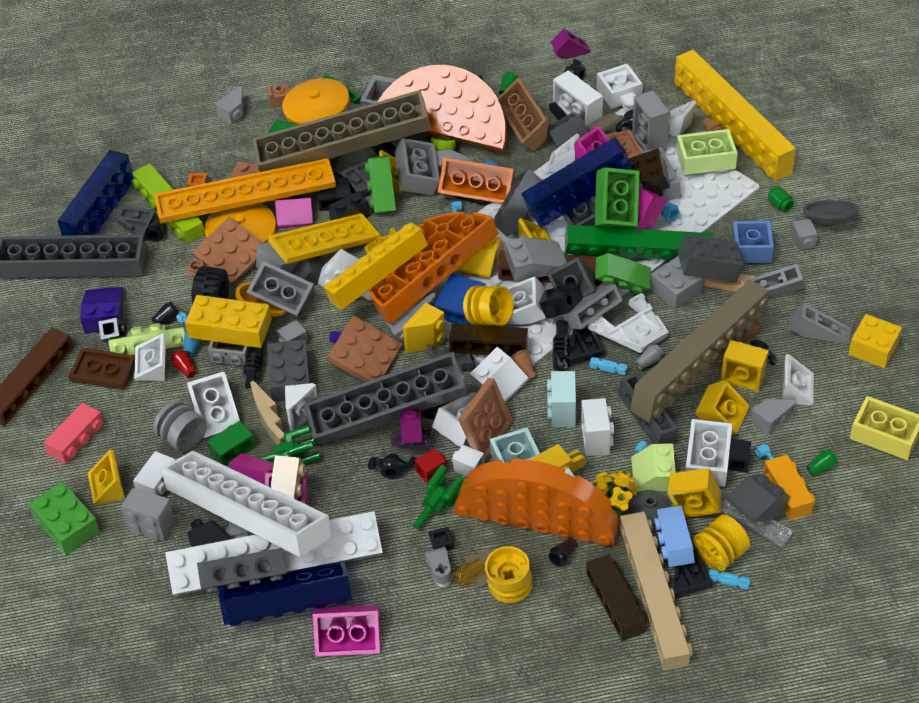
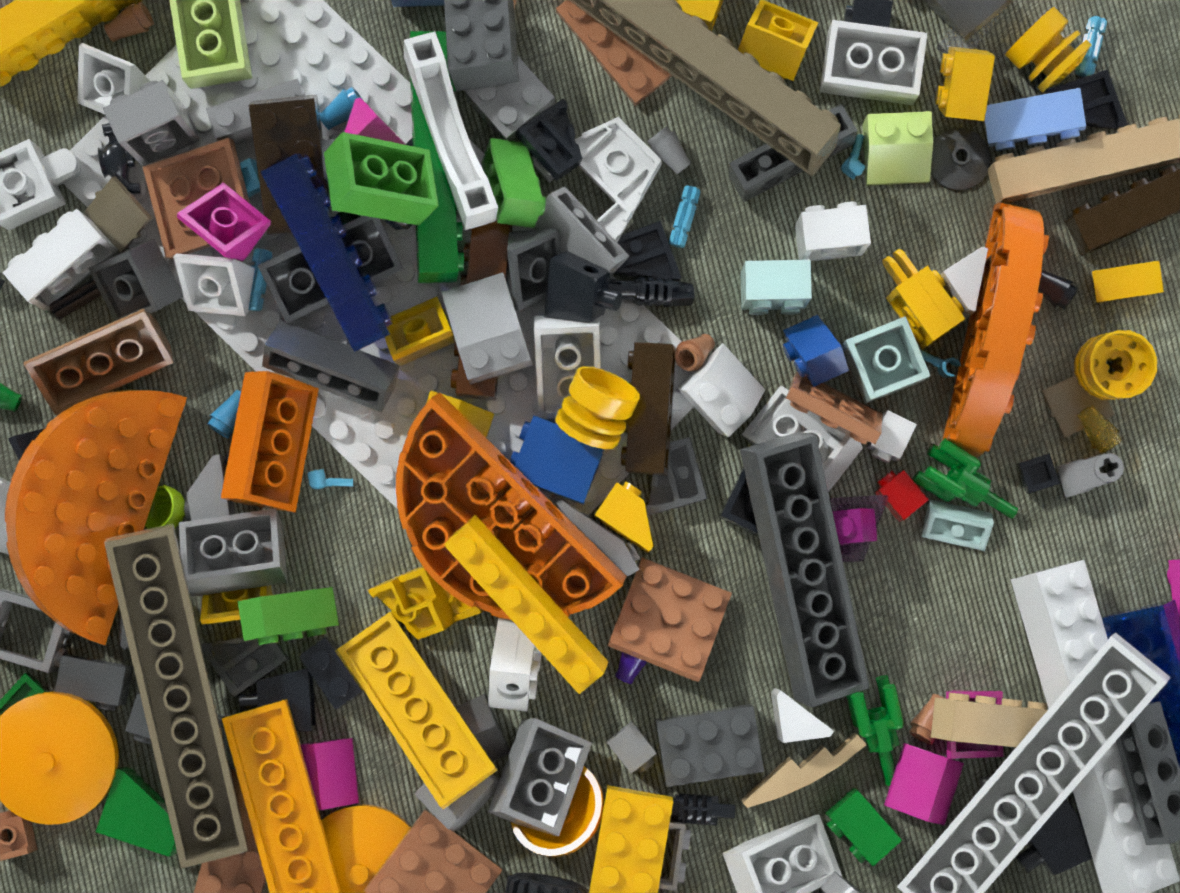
camera: 90 degrees left, 35 degrees up
(391, 465) = (898, 558): black piece -> none
(410, 500) = (957, 525): none -> light aqua slope
(521, 415) = (814, 351): none -> blue brick
(567, 592) = (1128, 281): none -> yellow slope
(622, 493) = (967, 210): yellow plant -> none
(652, 298) = (552, 140): none -> black wing
(671, 235) = (436, 96): none -> white arch

